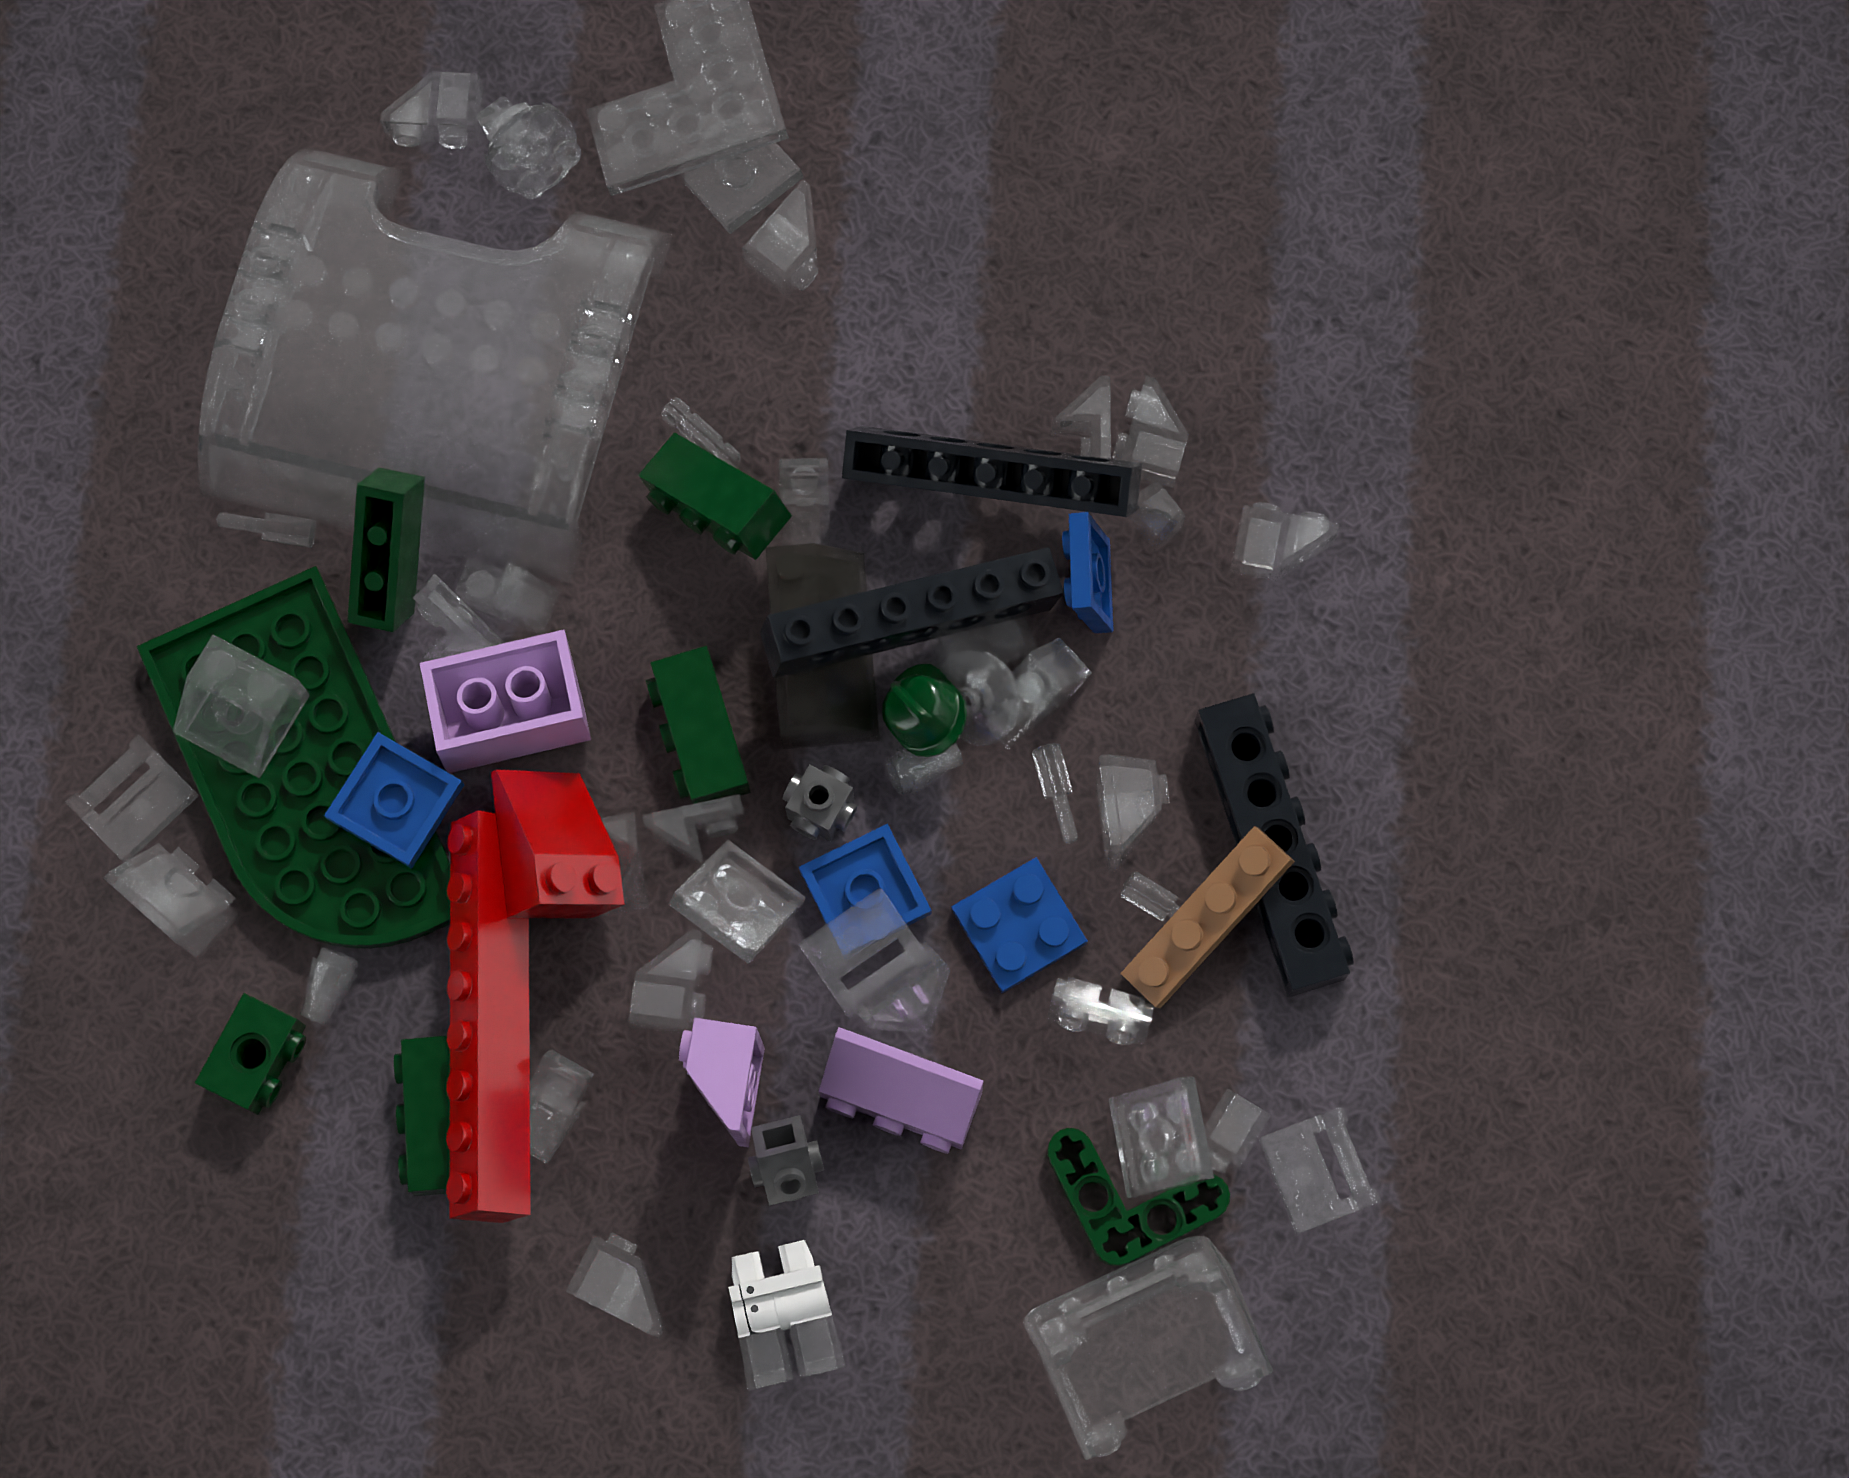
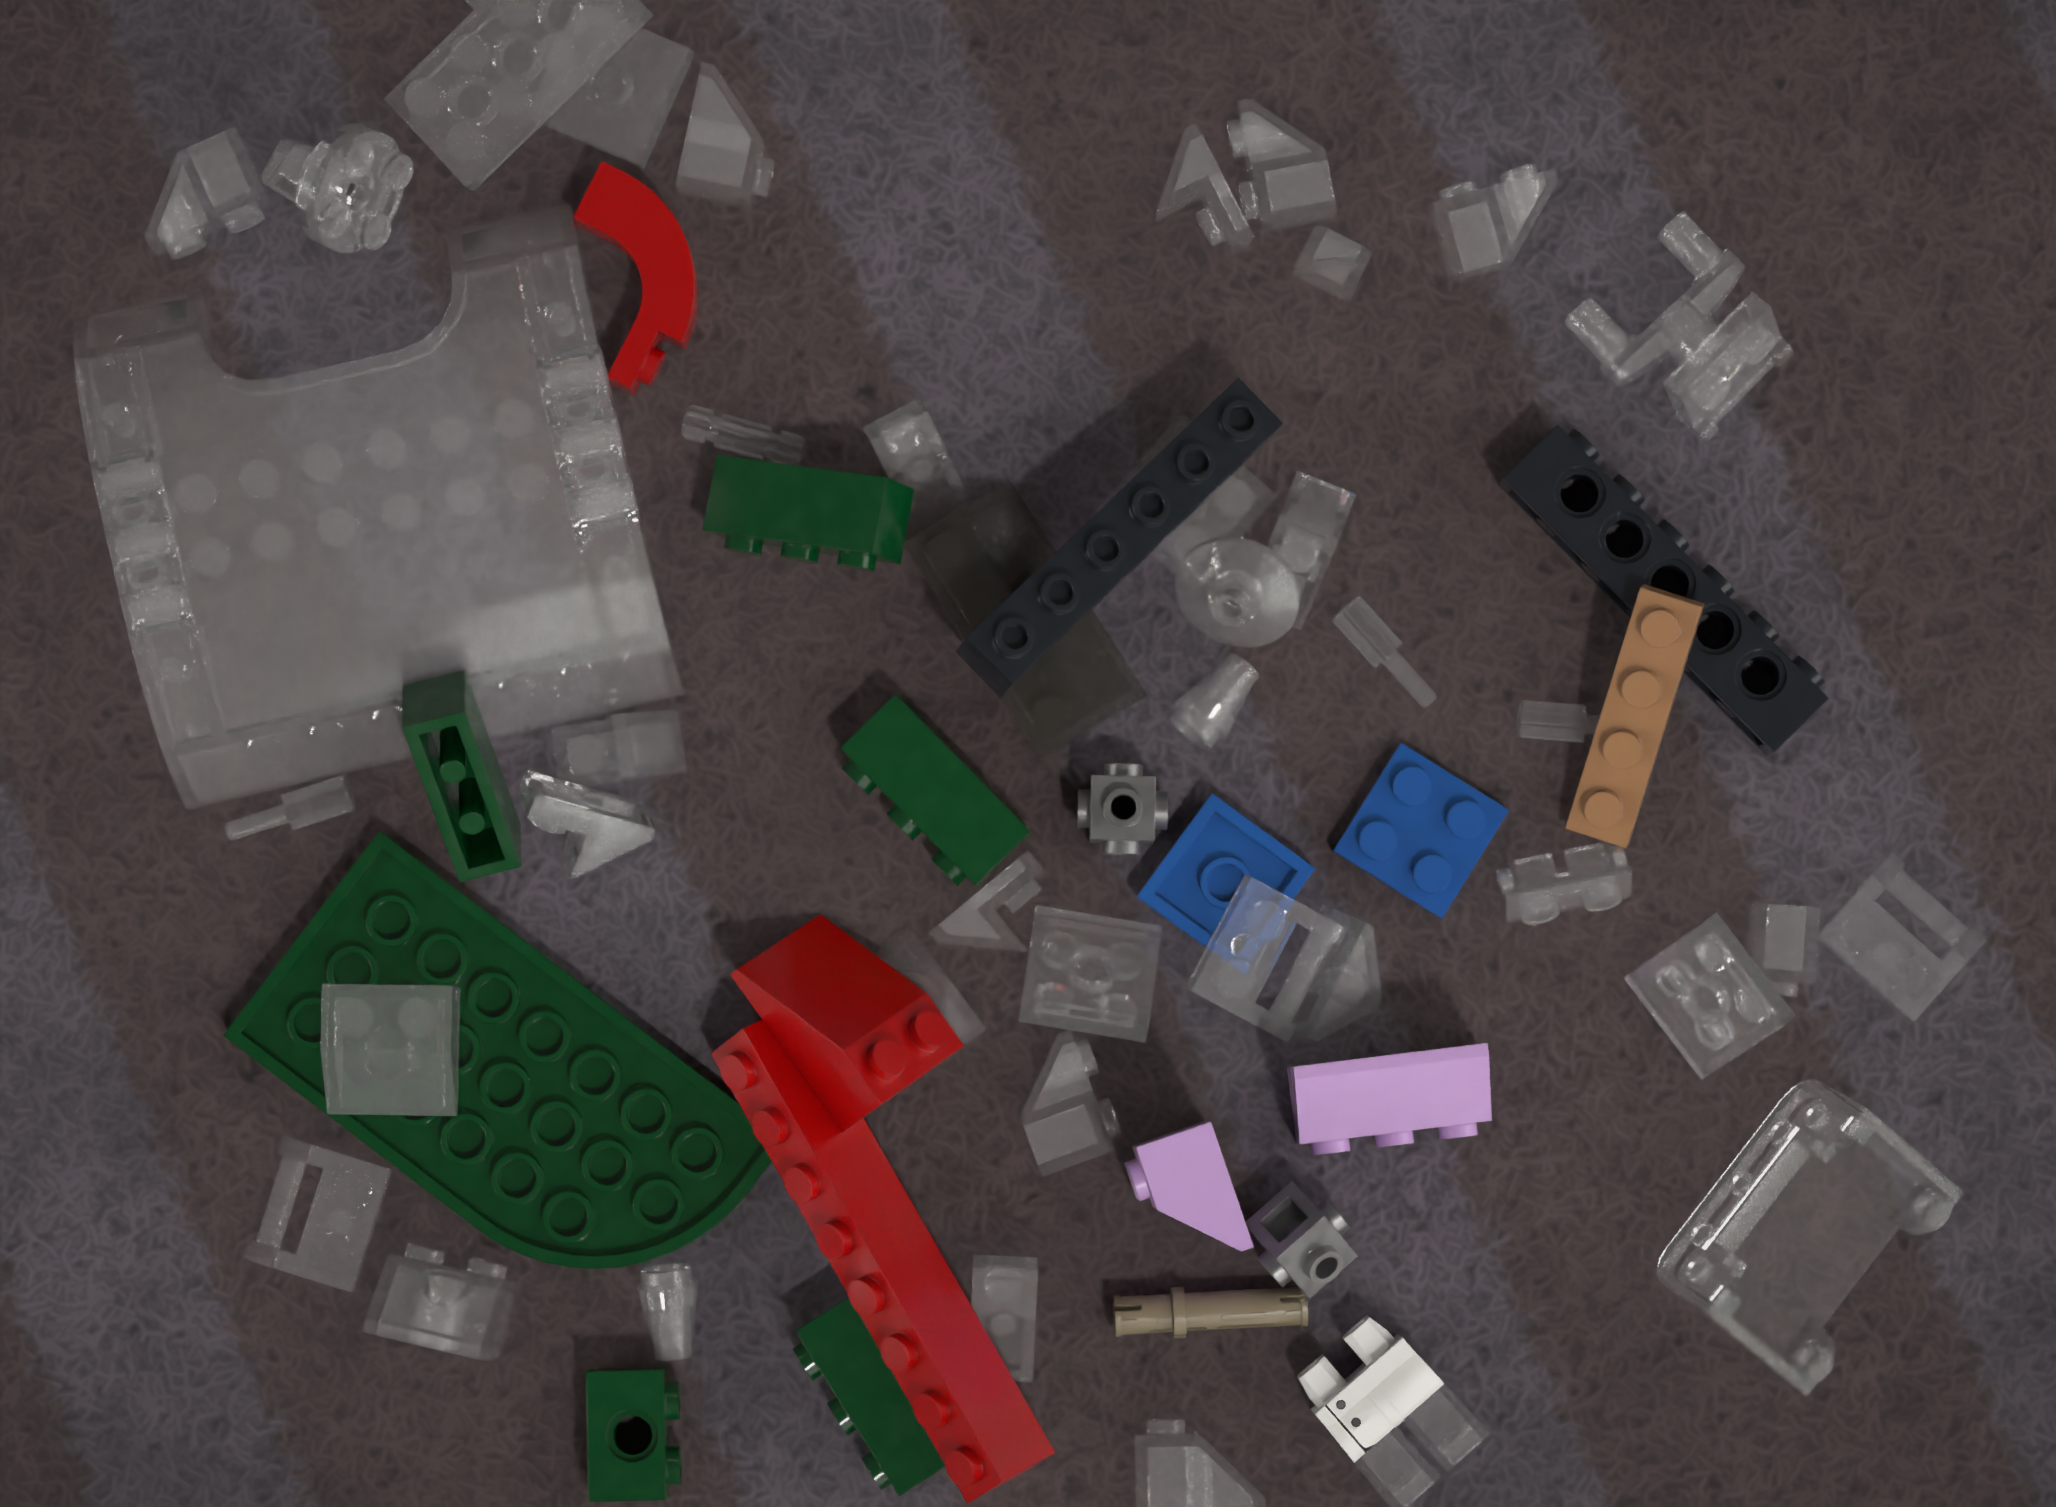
camera: 30 degrees left, 10 degrees up
(394, 800) = (633, 1062): blue plate -> none
(504, 701) = (694, 879): lavender slope -> none
(698, 1180) = (1209, 1311): none -> dark tan pin
(707, 308) = (645, 229): none -> red arch
(924, 711) = (1186, 639): dark green piece -> none
(992, 470) = (1119, 314): black brick -> none
(1090, 581) = (1305, 396): blue plate -> none
(1115, 1214) = (1696, 1104): dark green beam -> none
(1128, 803) = (1478, 632): clear slope -> none
(1373, 676) = (1677, 329): none -> clear connector
(1391, 713) = (1726, 367): none -> clear plate

